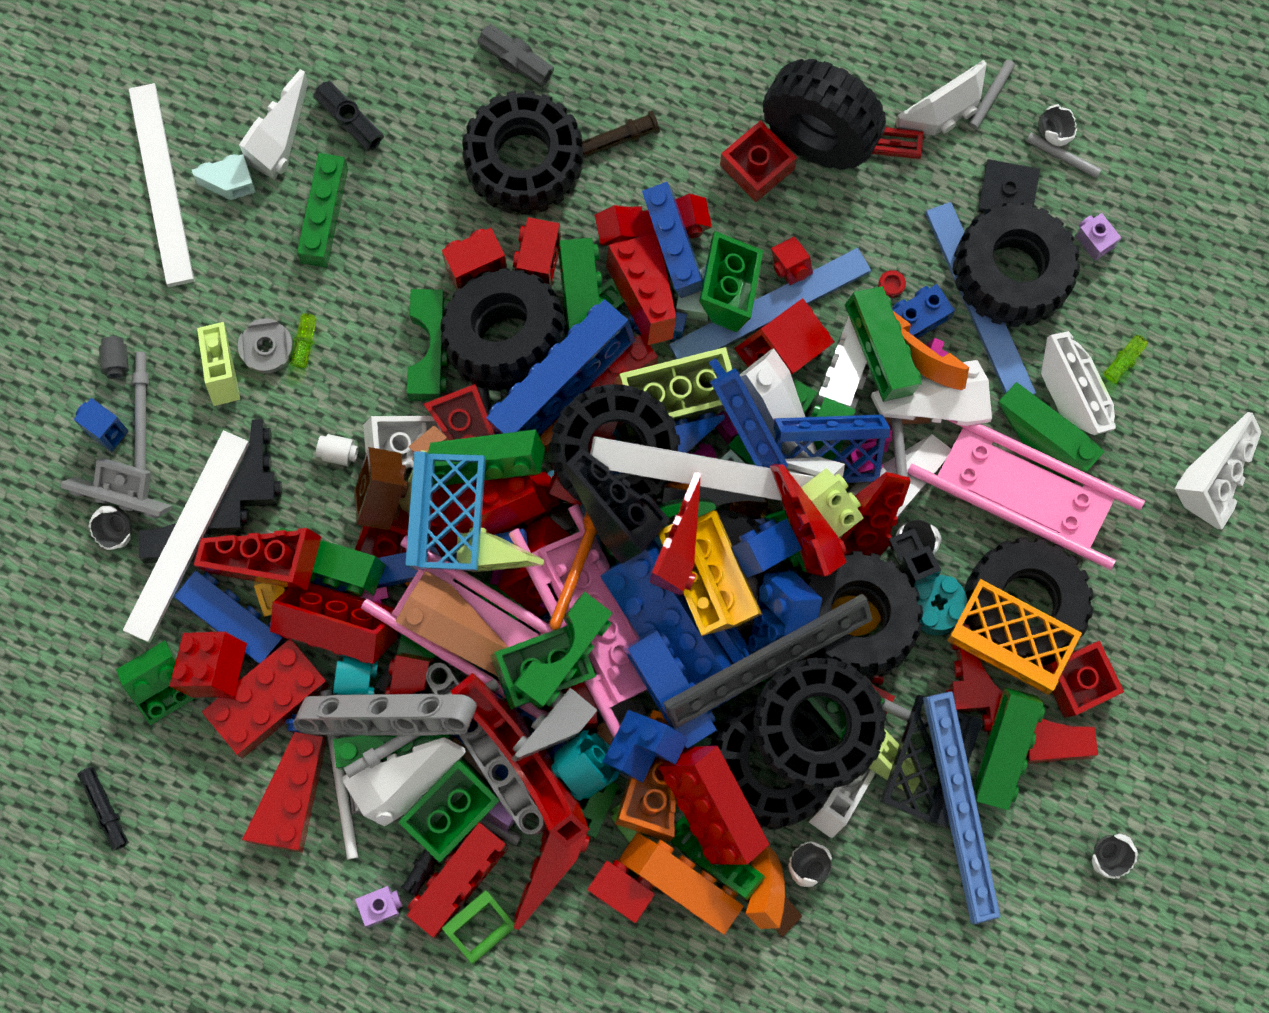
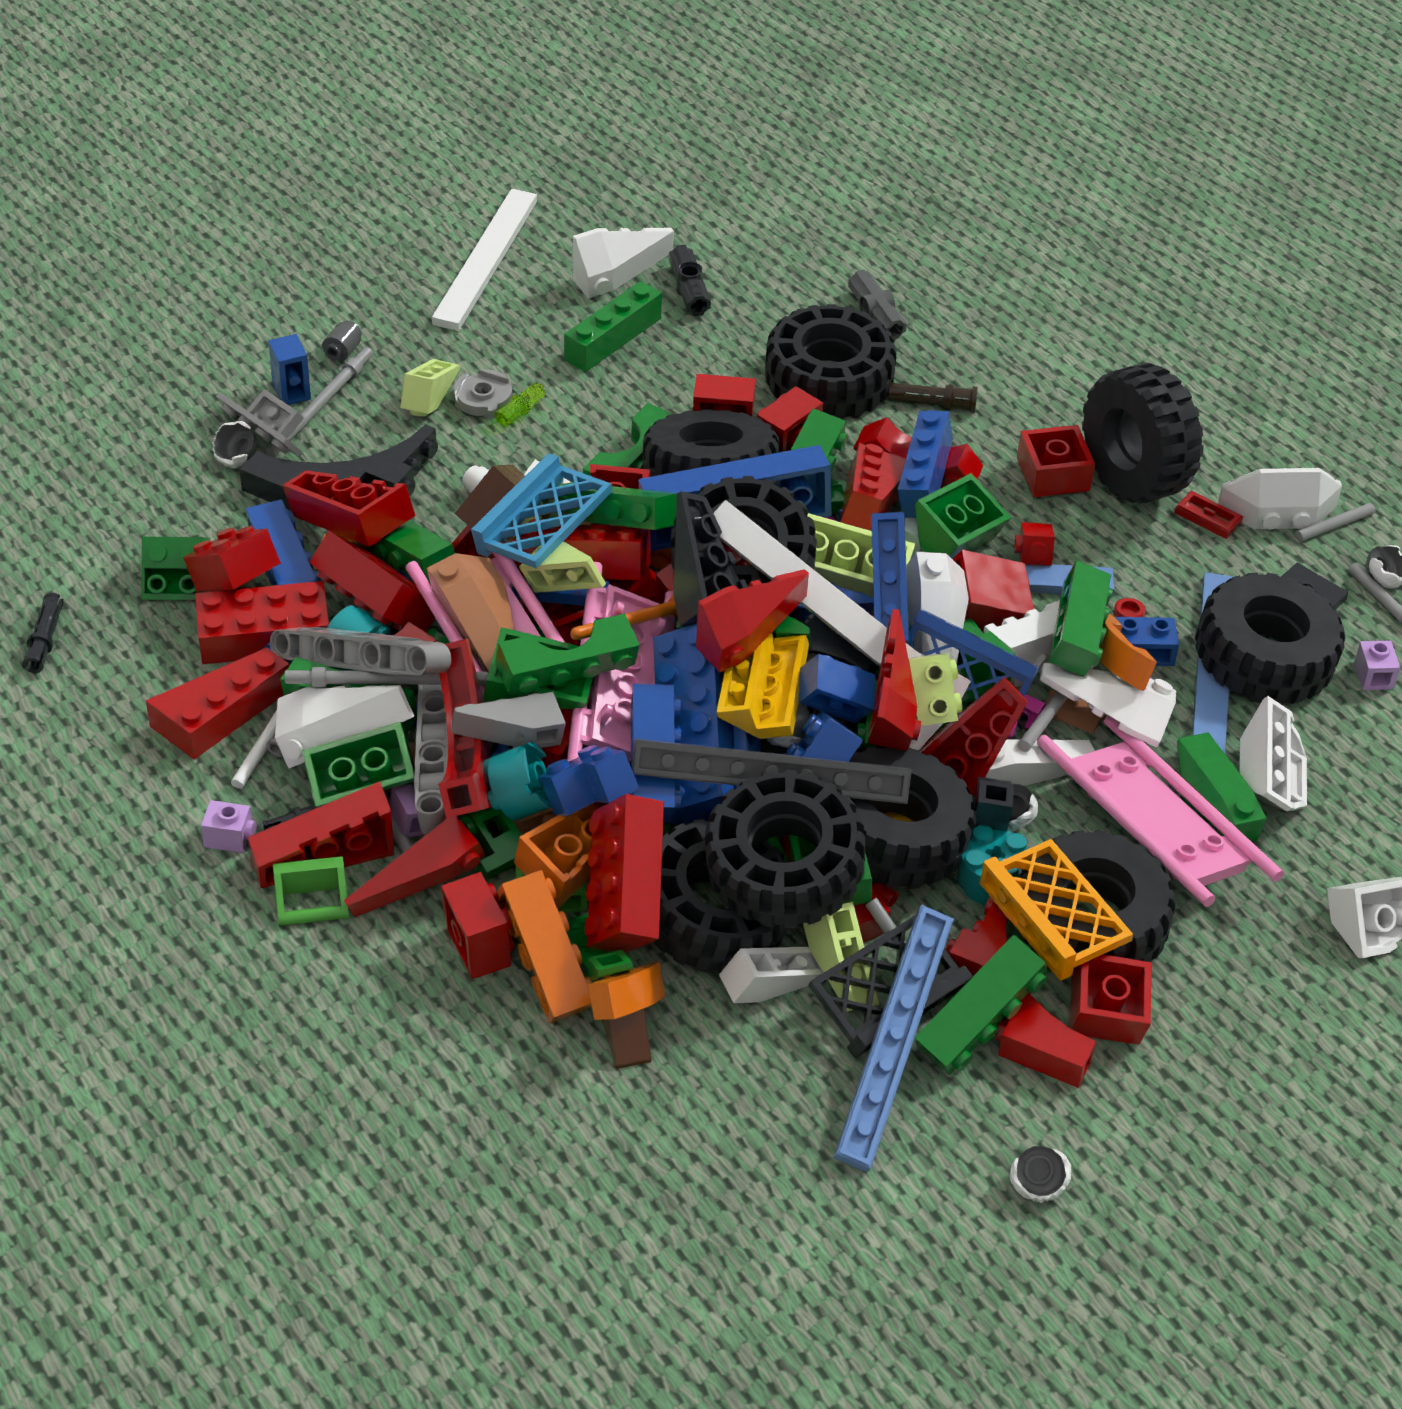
camera: 30 degrees right, 30 degrees down
(186, 536) = (270, 479): white tile -> none
(227, 177) = (546, 273): light aqua slope -> none
(810, 864) = (693, 1012): dark grey hair -> none
(1125, 358) = (1343, 773): clear neon green axle -> none

